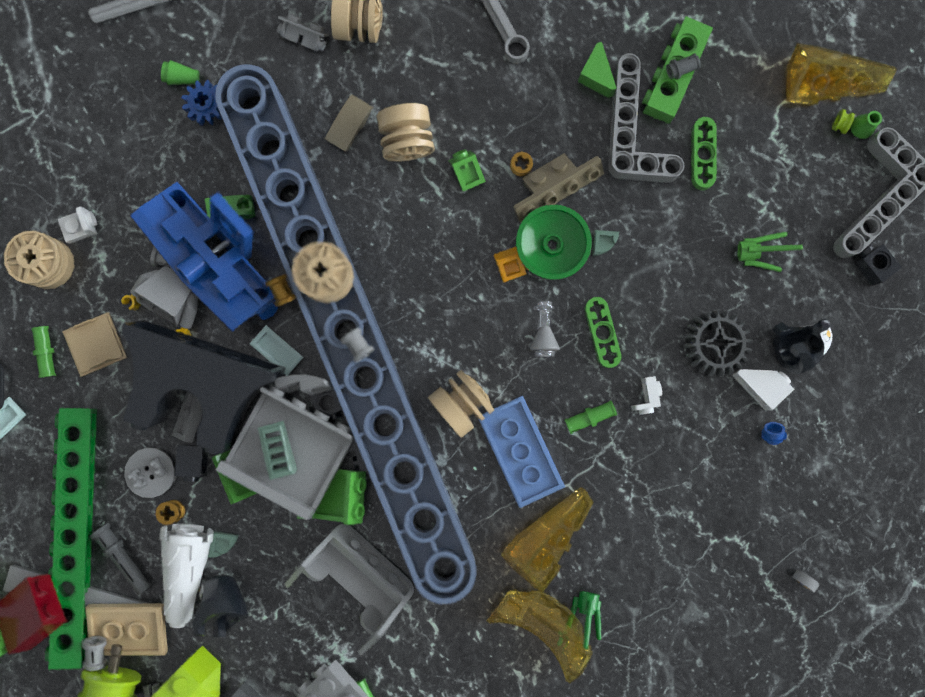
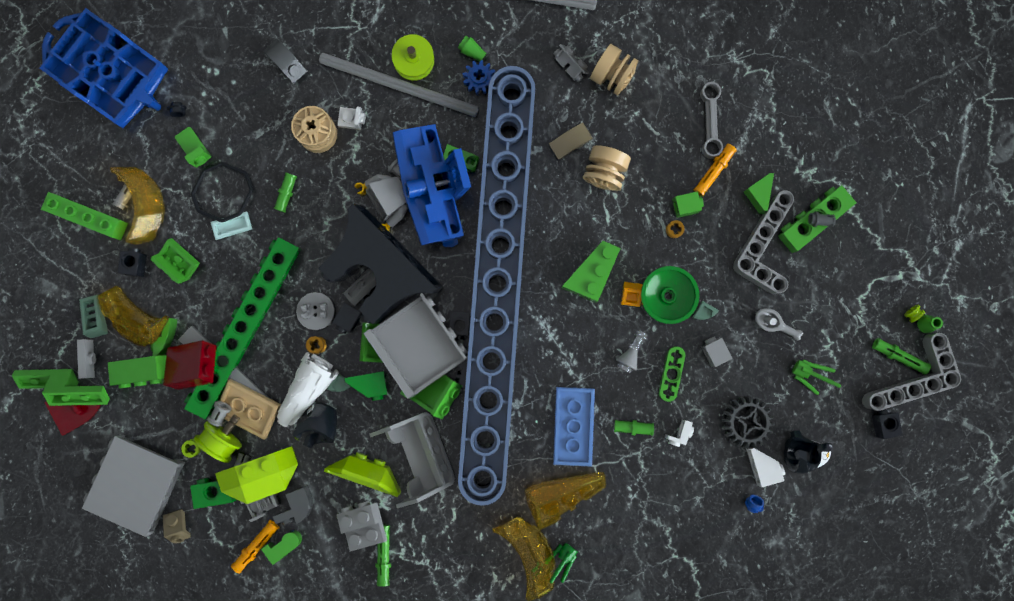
camera: 30 degrees right, 0 degrees up
(94, 344) = (321, 204): tan piece -> none
(113, 117) = (413, 57): none -> lime wheel
(114, 158) = (399, 84): none -> light grey axle
(114, 549) = (265, 350): dark grey pin -> none
(256, 527) = (369, 385): none -> green slope
(276, 349) = (442, 271): light aqua tile -> none
(280, 290) = (468, 234): pearl gold bush -> none
(291, 466) = (406, 357): sand green slope -> none
(305, 631) = (366, 472): none -> lime wedge
(306, 383) = (454, 307): light grey slope -> none
(334, 283) = (509, 248): tan wheel -> none
(357, 345) = (501, 298): light grey bush -> none
(452, 262) = (592, 275): none -> bright green wedge
(461, 403) = (551, 373): tan wheel -> none
(466, 169) = (635, 214): bright green bracket -> none
(521, 127) = (687, 204): none -> bright green brick
(534, 62) = (719, 164): none -> light orange pin
(555, 182) = (692, 254): dark tan bracket -> none
(640, 280) = (716, 351): none -> light grey brick
(685, 213) = (772, 321): none -> light grey piece
(697, 135) = (813, 284): bright green beam -> none
(825, 178) = (882, 347): none -> bright green pin
(827, 74) = (919, 274): clear yellow wedge -> none

